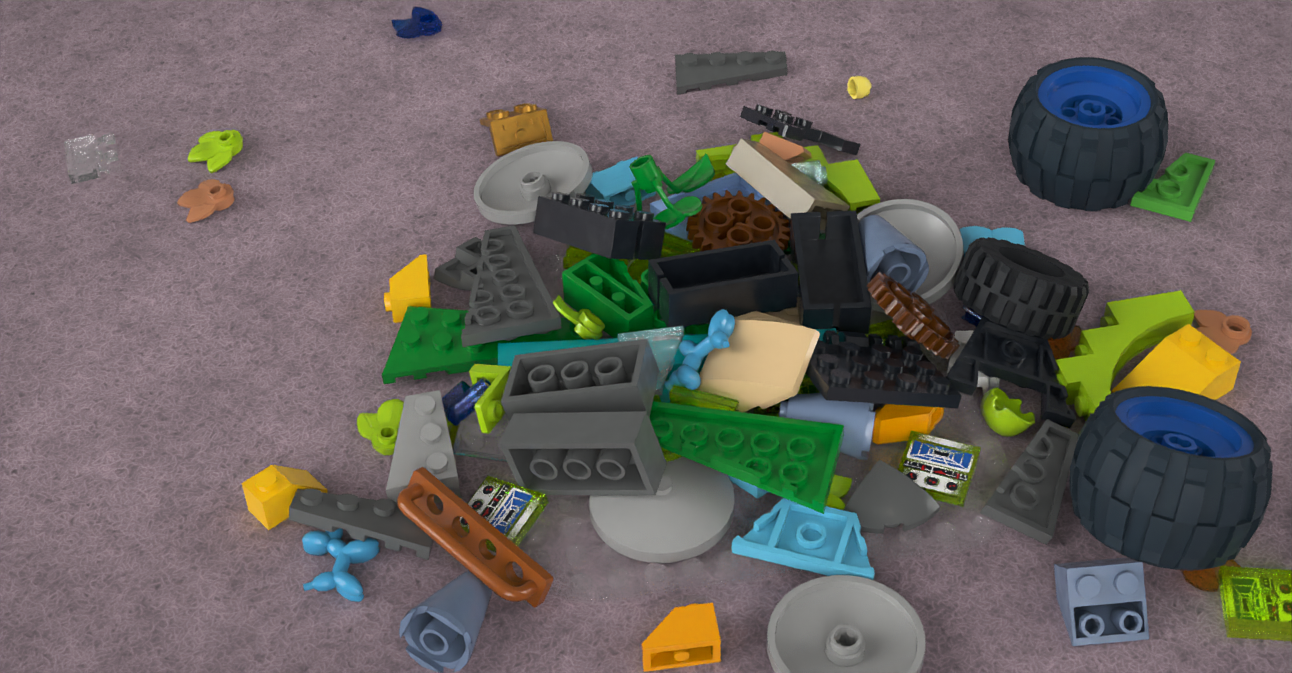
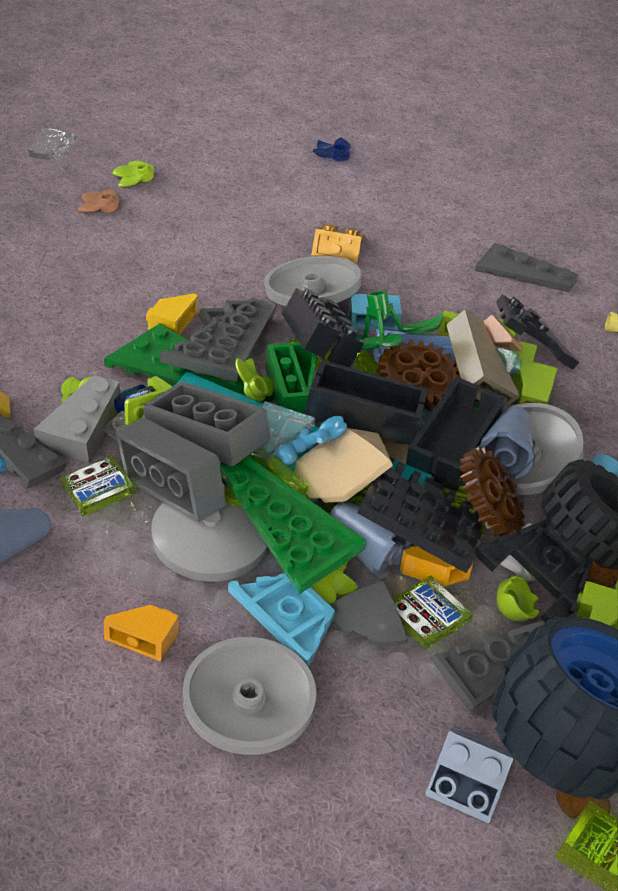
camera: 25 degrees right, 0 degrees up
(470, 548) = (66, 489): dark orange piece -> none

